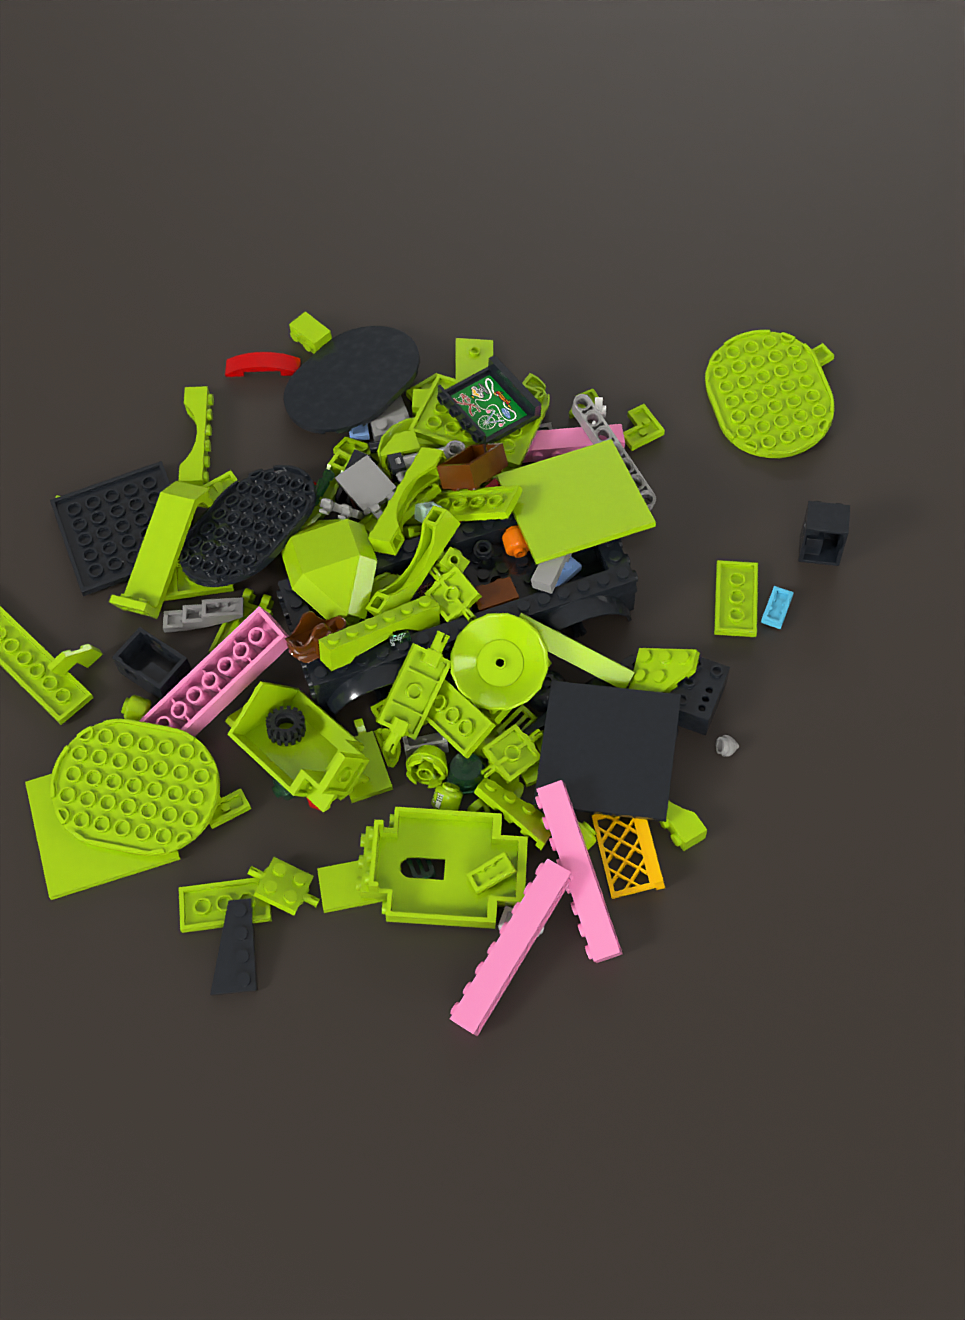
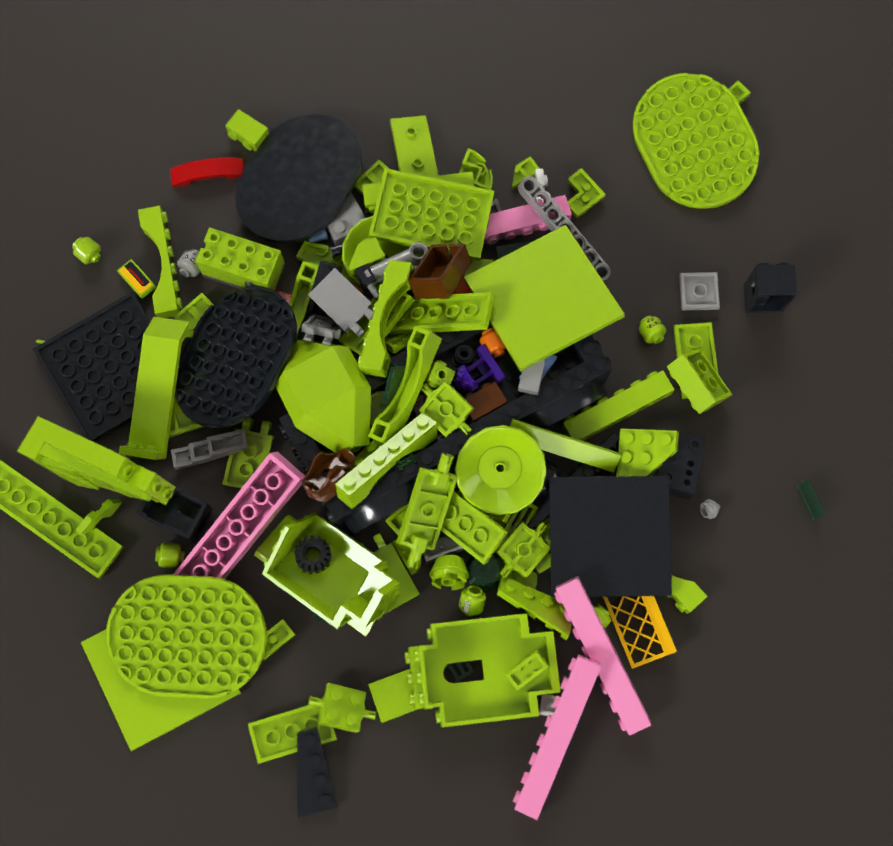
camera: 15 degrees left, 15 degrees up
(78, 598) = (91, 464): none -> lime panel
(126, 419) = (86, 250): none -> lime head
(168, 451) = (136, 278): none -> slope
(226, 443) = (187, 263): none -> light grey head
(270, 440) = (239, 261): none -> lime piece
(323, 484) = (295, 298): clear green axle -> none
(401, 560) = (393, 382): none -> clear green slope
(423, 509) = (405, 324): light aqua slope -> none
(478, 806) = (498, 606): lime tile -> none
(490, 403) = (441, 196): panel -> none
(502, 561) = (485, 365): none -> dark purple tile
(646, 630) = (619, 407): none -> lime brick
(692, 562) = (652, 329): none -> lime head
(733, 613) = (698, 380): none -> lime slope
(750, 533) = (699, 291): none -> light grey plate
(777, 607) = (734, 364): medium azure plate -> none
(841, 751) = (810, 499): none -> clear green tile

